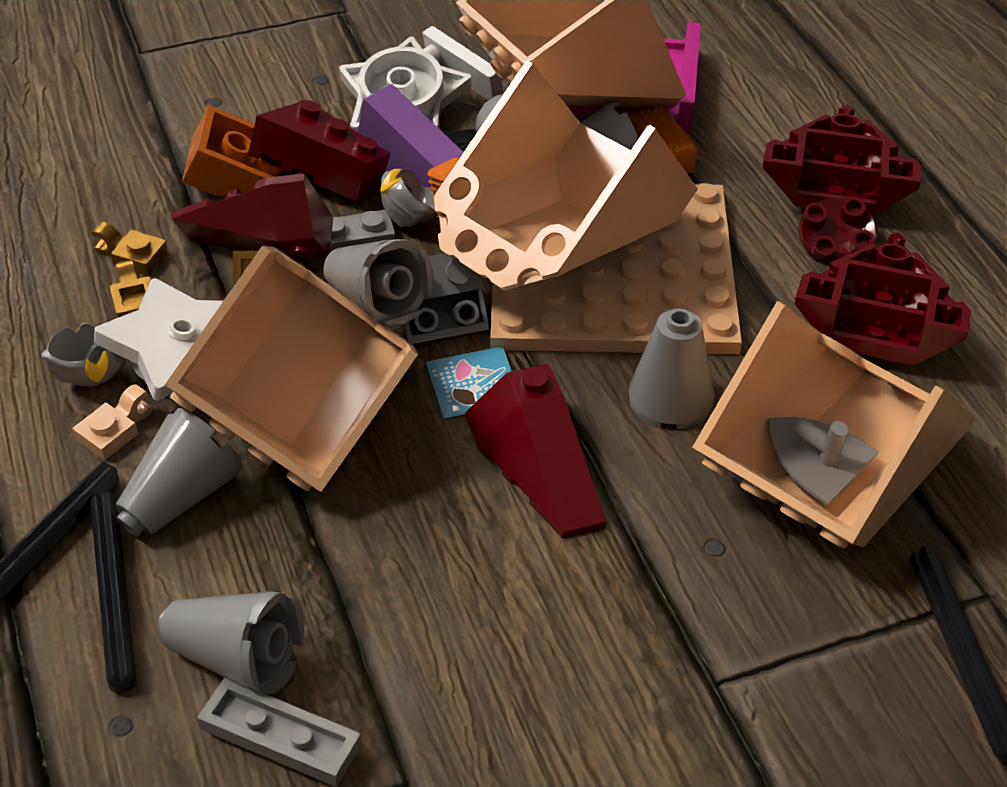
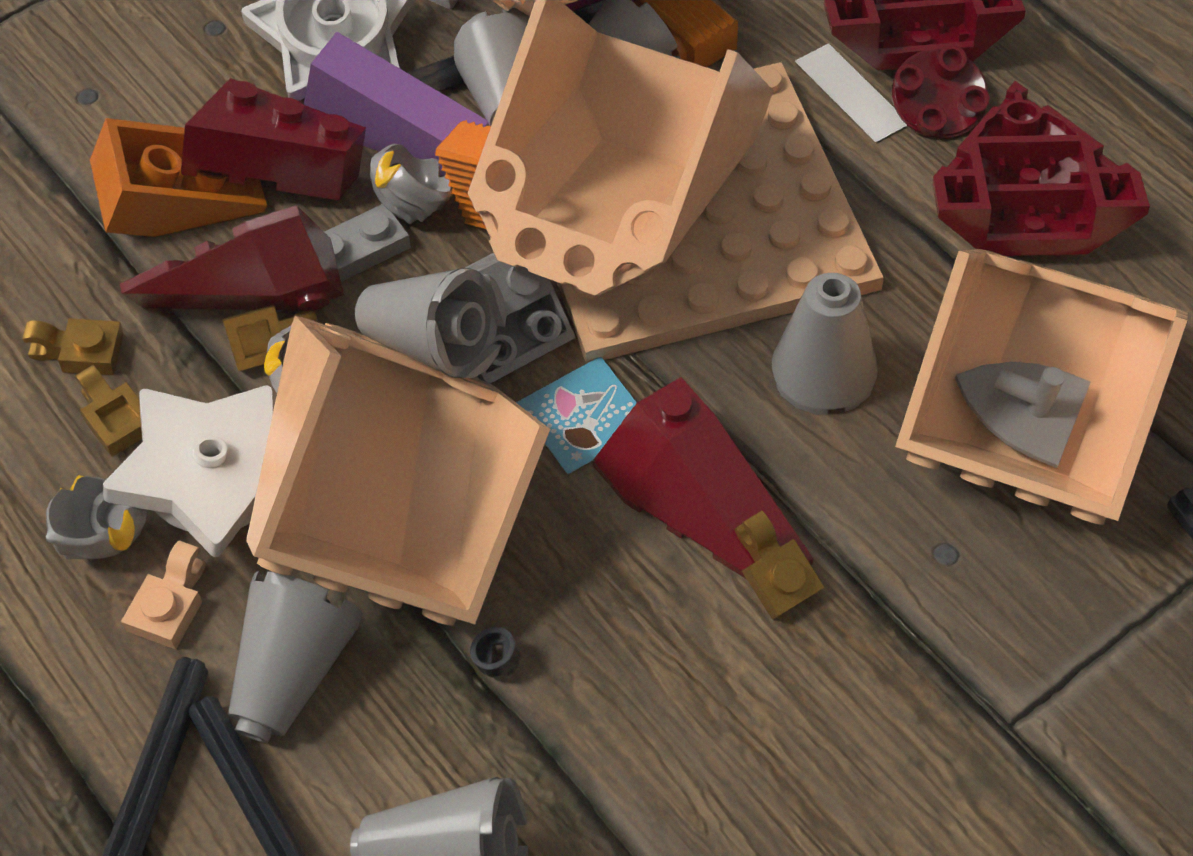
camera: 15 degrees left, 10 degrees up
(325, 523) = (485, 656): none -> black hinge
(571, 522) = (779, 574): none -> pearl gold plate
(771, 219) = (851, 92): none -> white sticker

